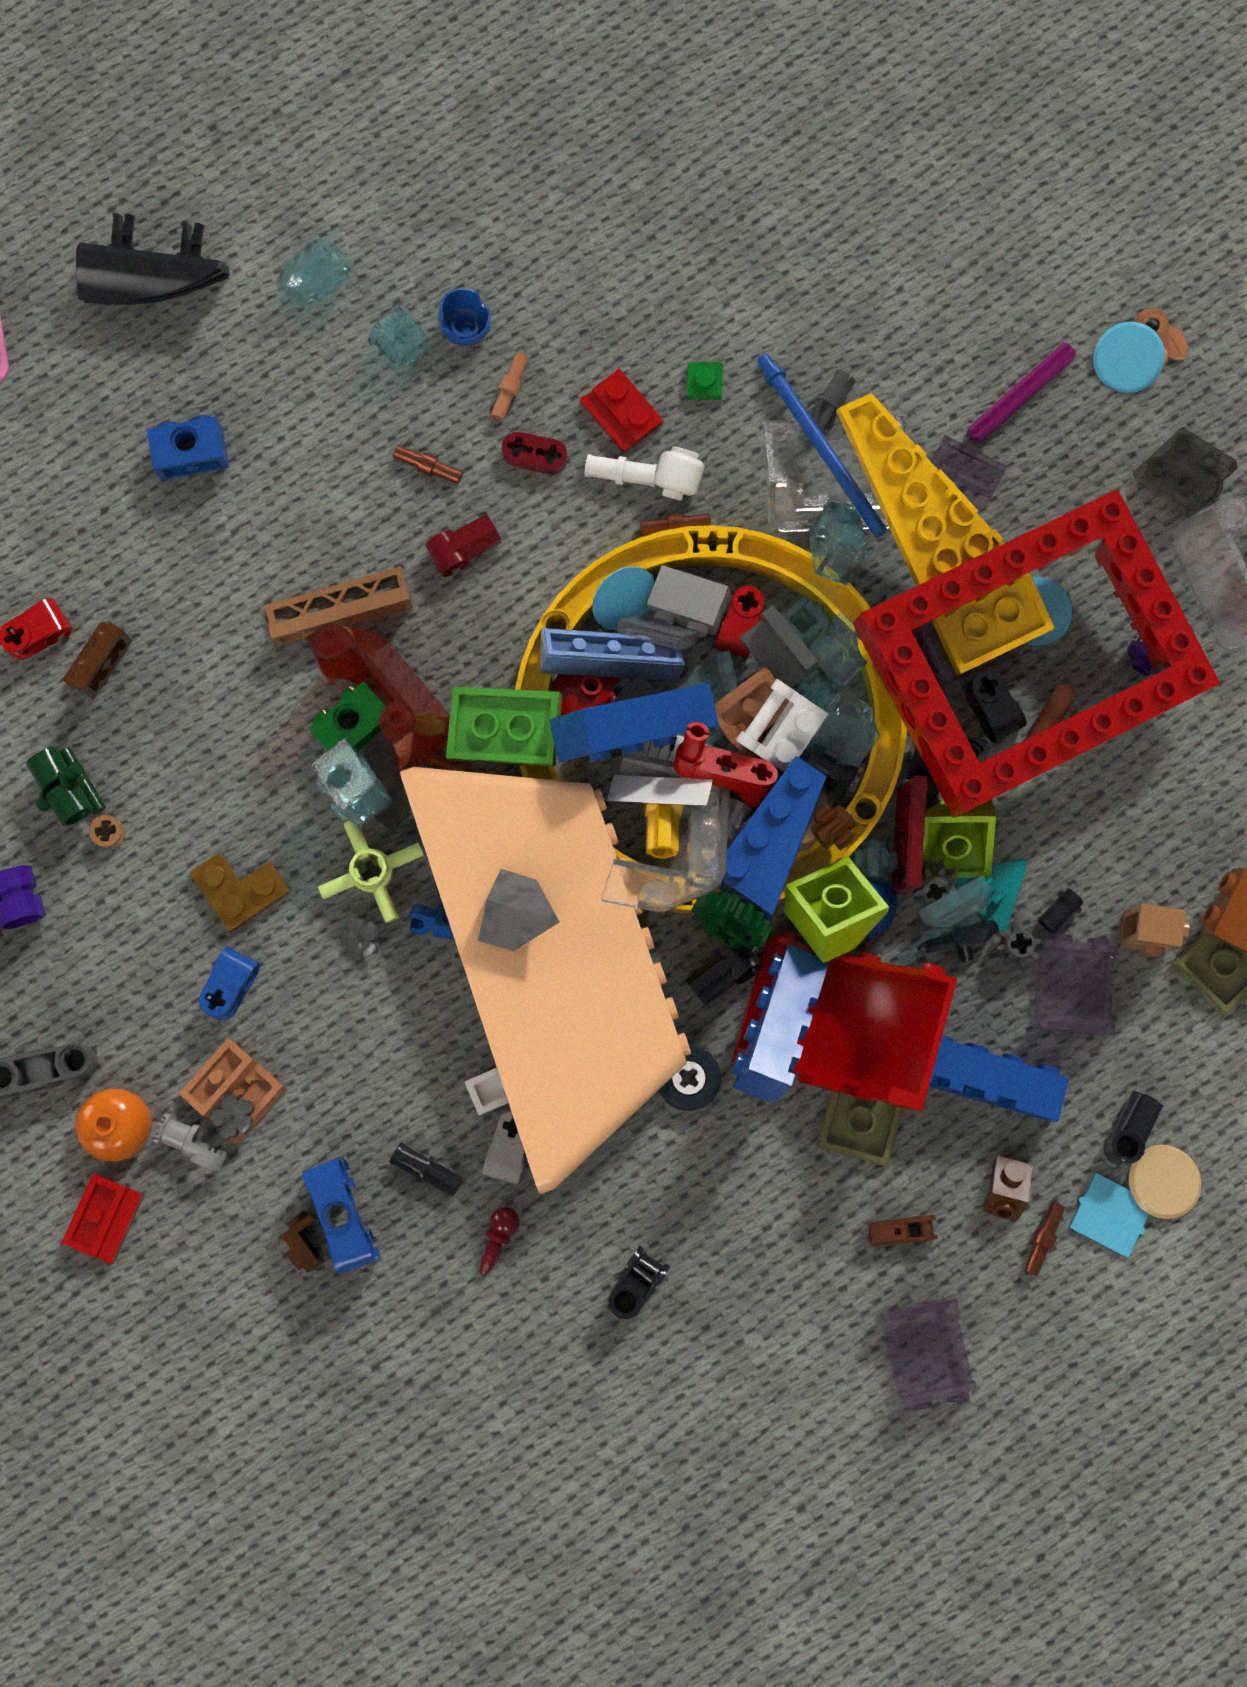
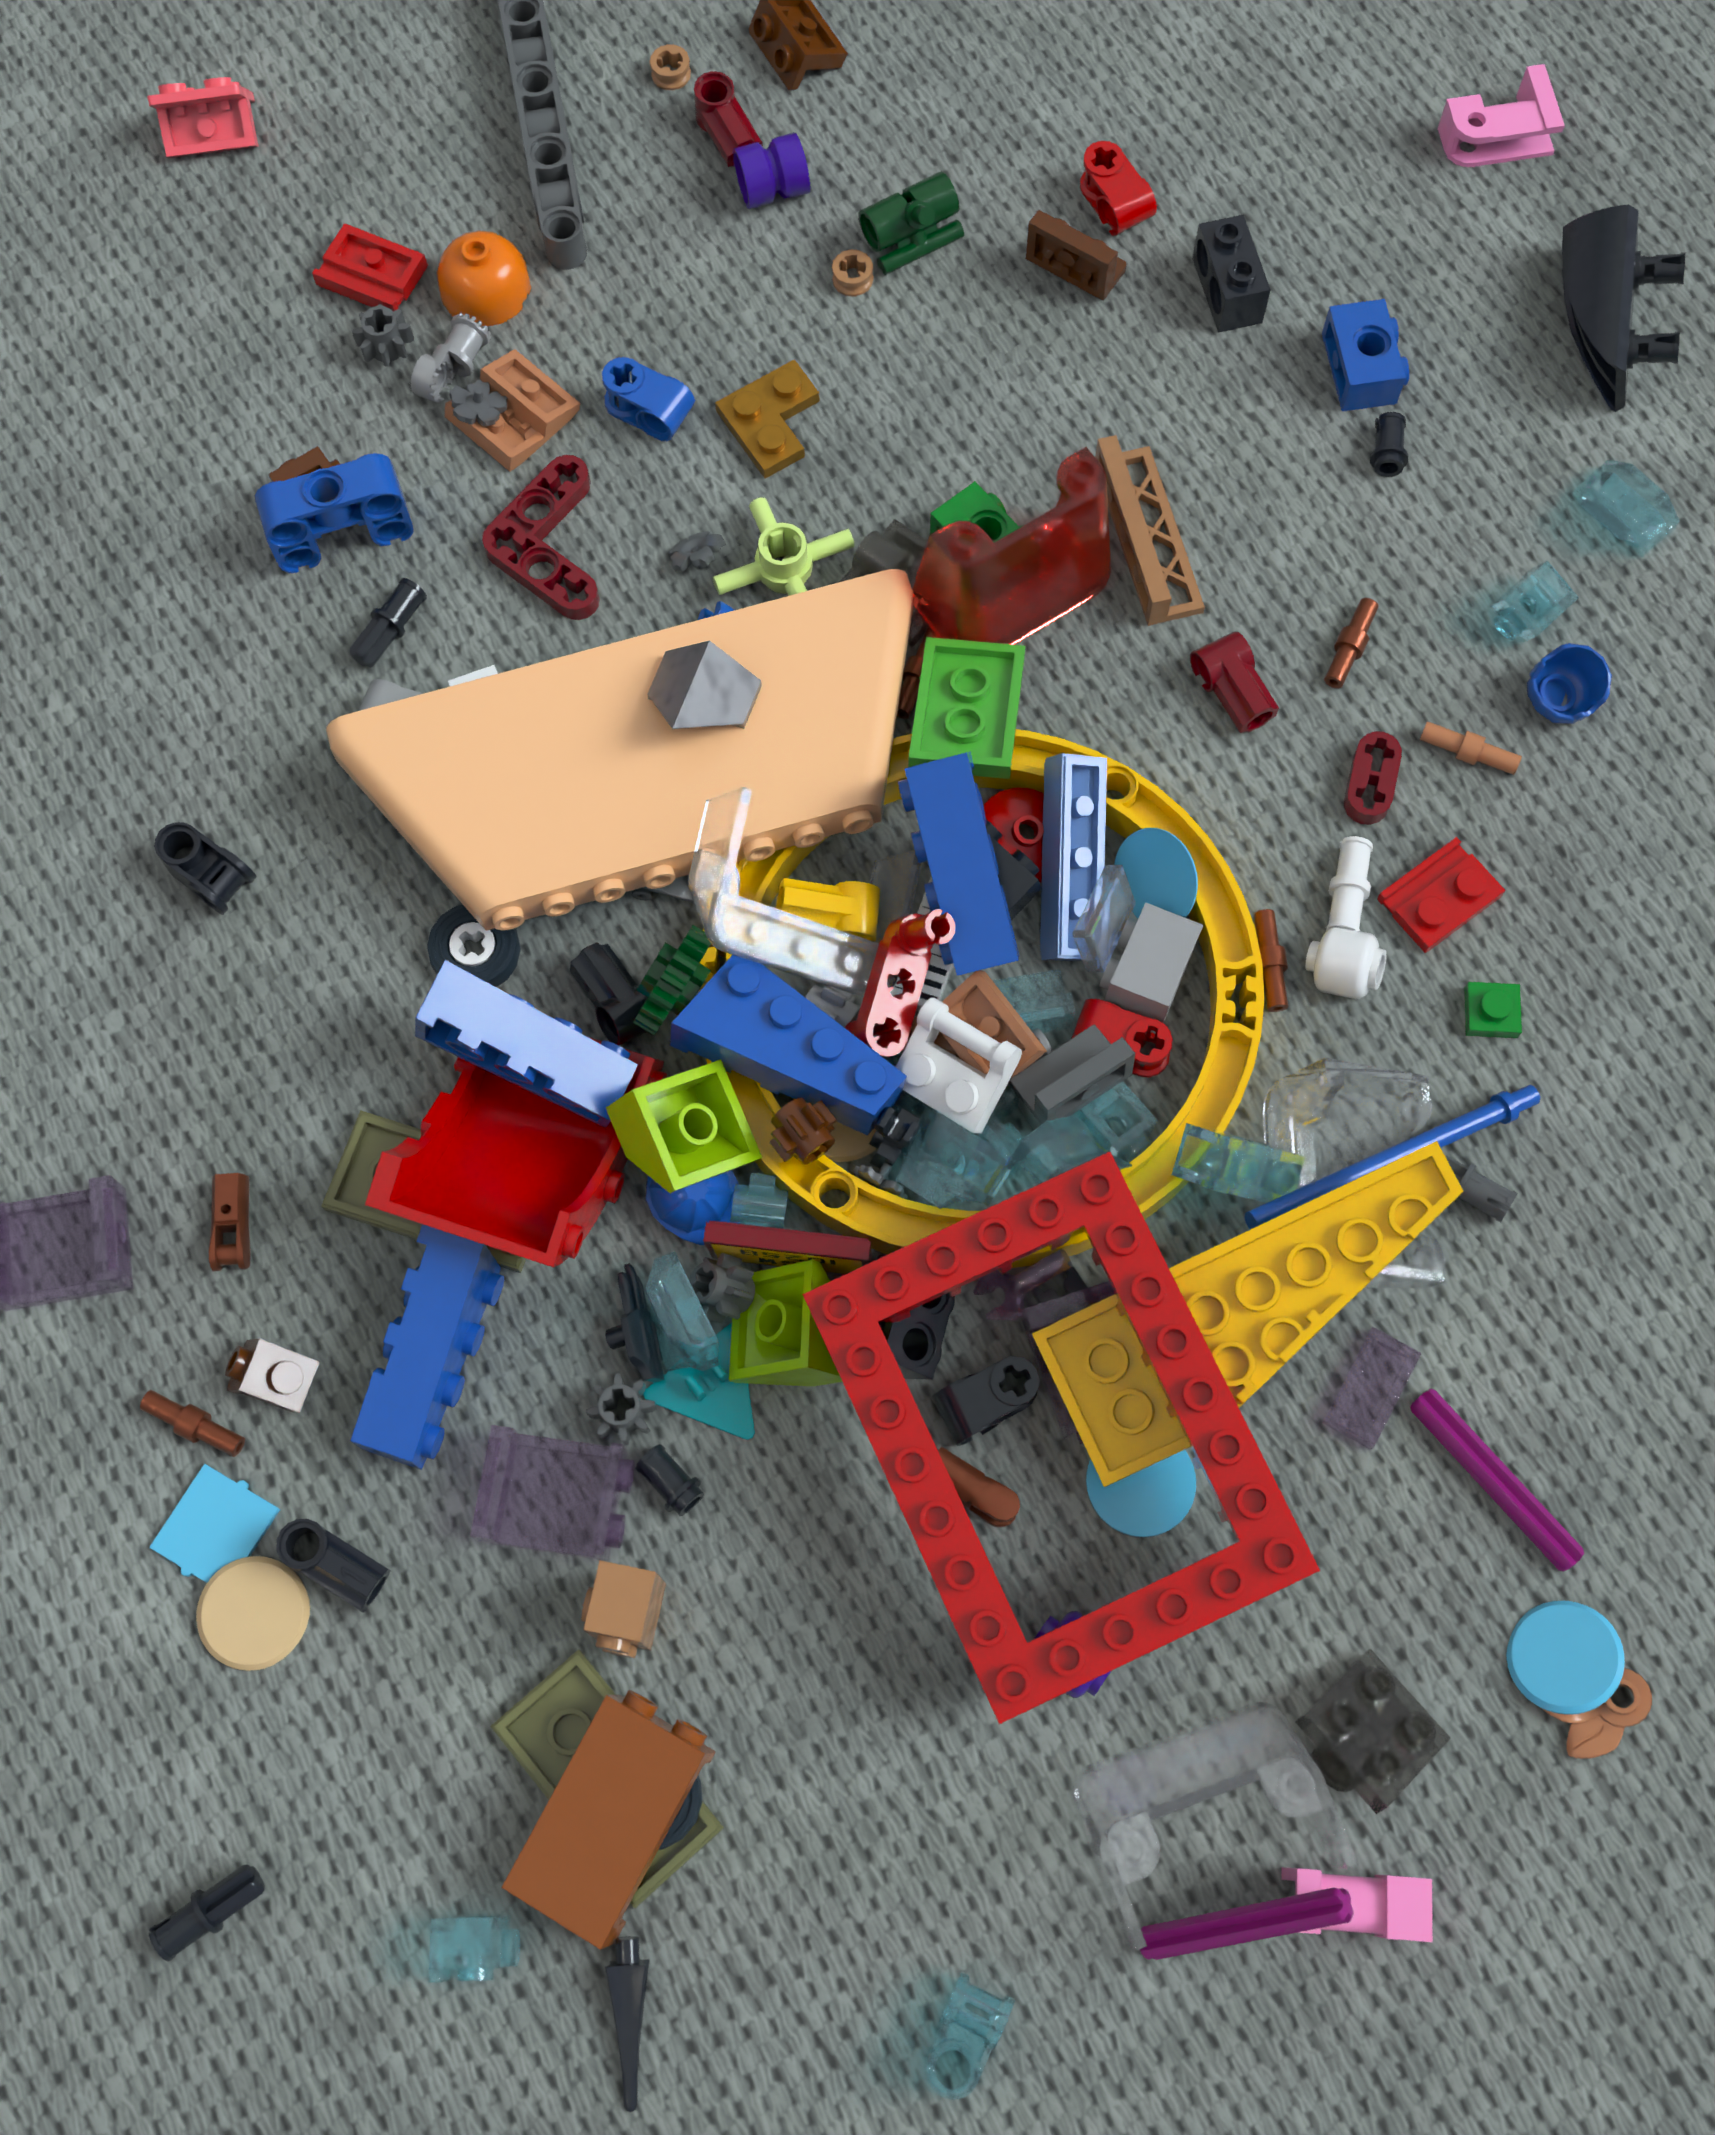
camera: 95 degrees right, 10 degrees down
(116, 542) = (1231, 273): none -> black brick
(177, 1206) = (383, 334): none -> dark grey gear
(263, 432) = (1389, 452): none -> black pin
(343, 1067) = (529, 533): none -> dark red beam
(350, 783) = (891, 519): clear light blue brick -> none
(503, 1224) = (304, 711): dark red bar -> none
(660, 790) = (866, 898): white sticker -> none

